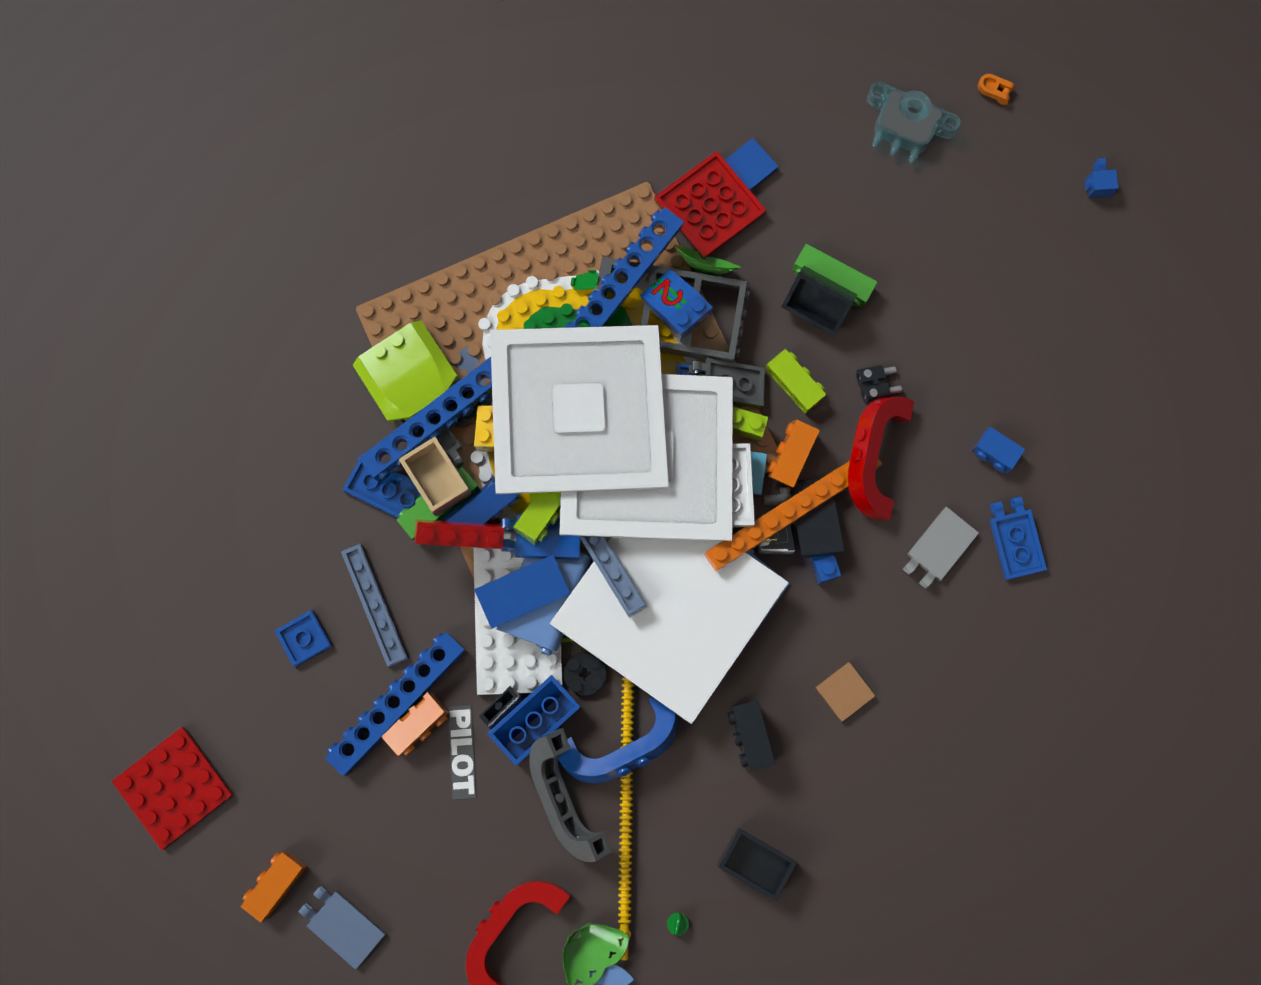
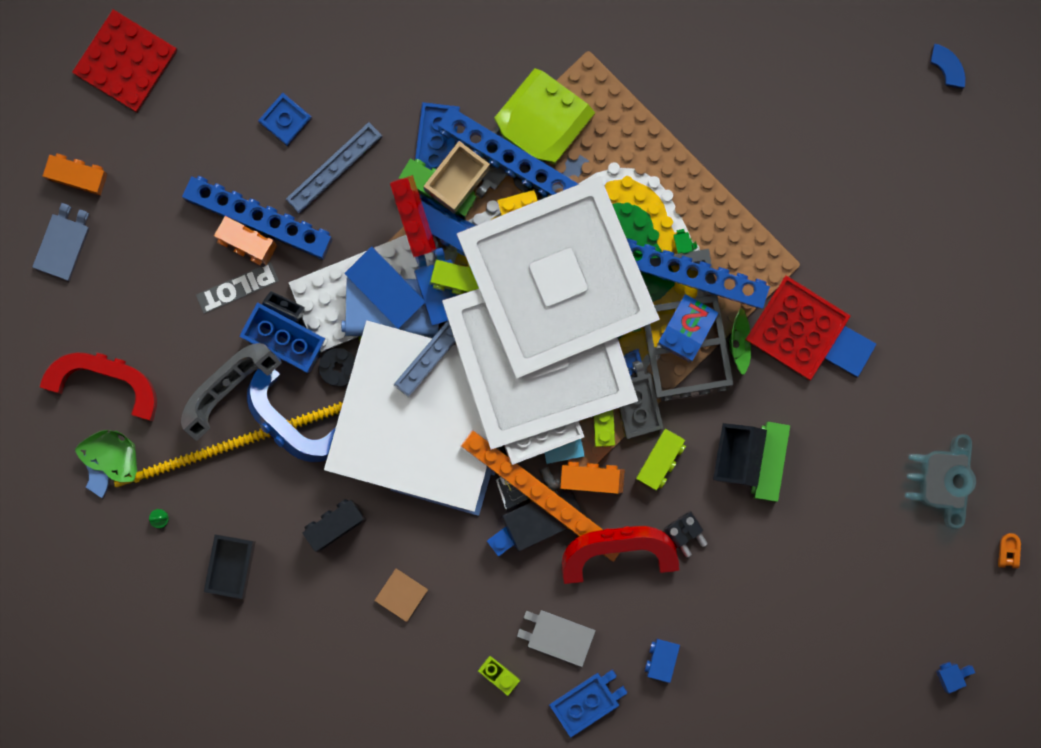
camera: 70 degrees right, 5 degrees up
(963, 618) = (499, 675): none -> lime slope

